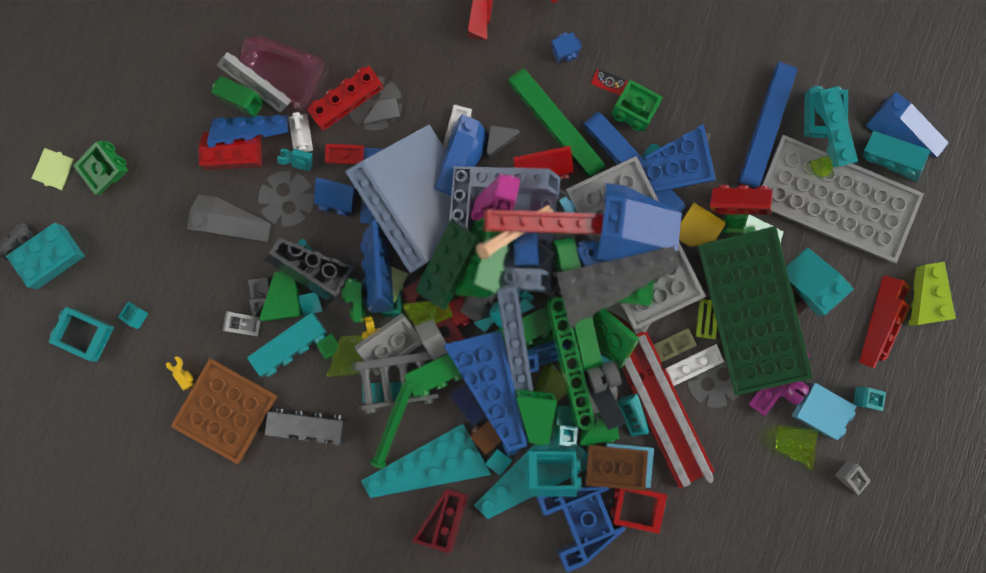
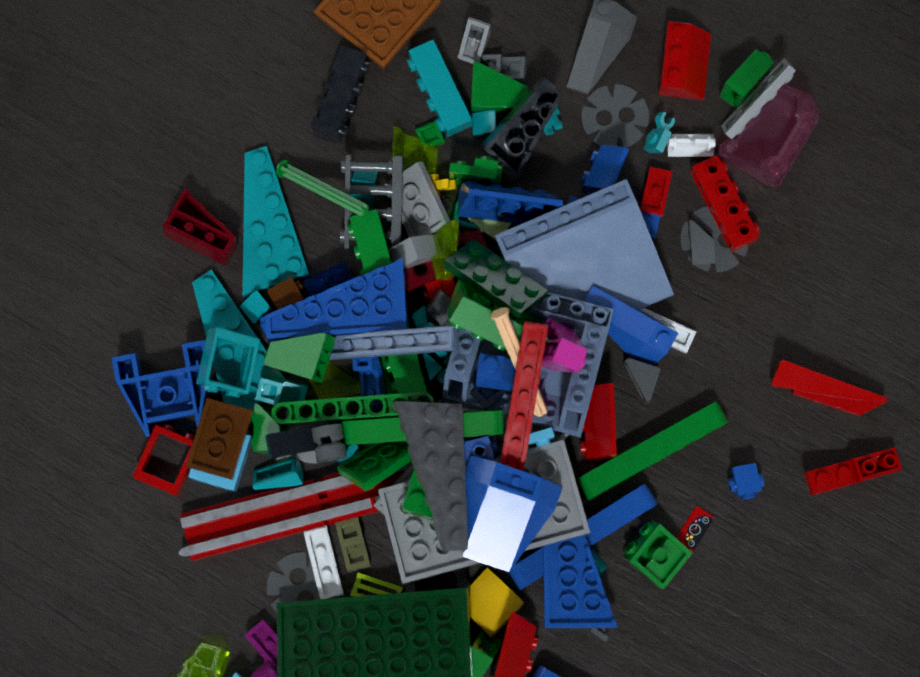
camera: 105 degrees right, 5 degrees down
(246, 127) = (707, 68): blue wing -> none

